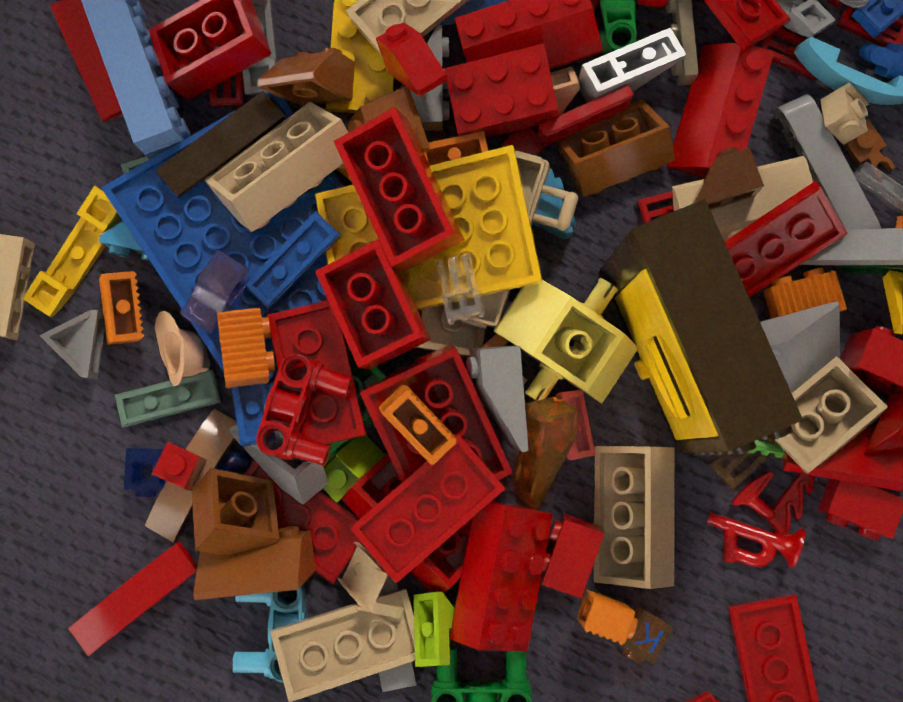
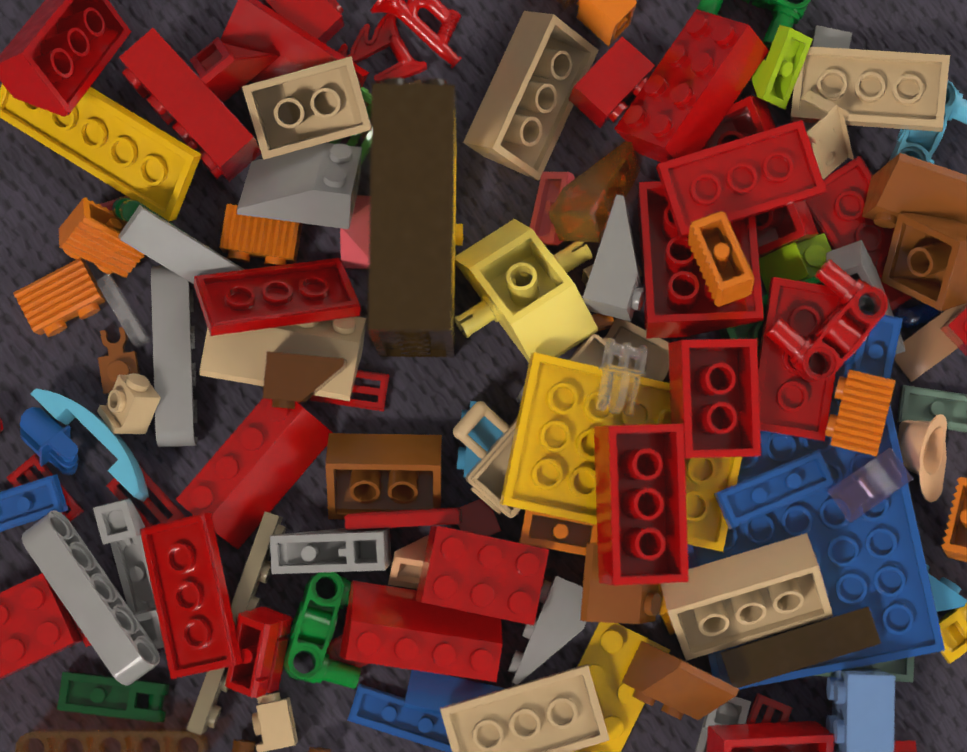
camera: 160 degrees left, 0 degrees up
(410, 59) = (566, 645): red slope -> none

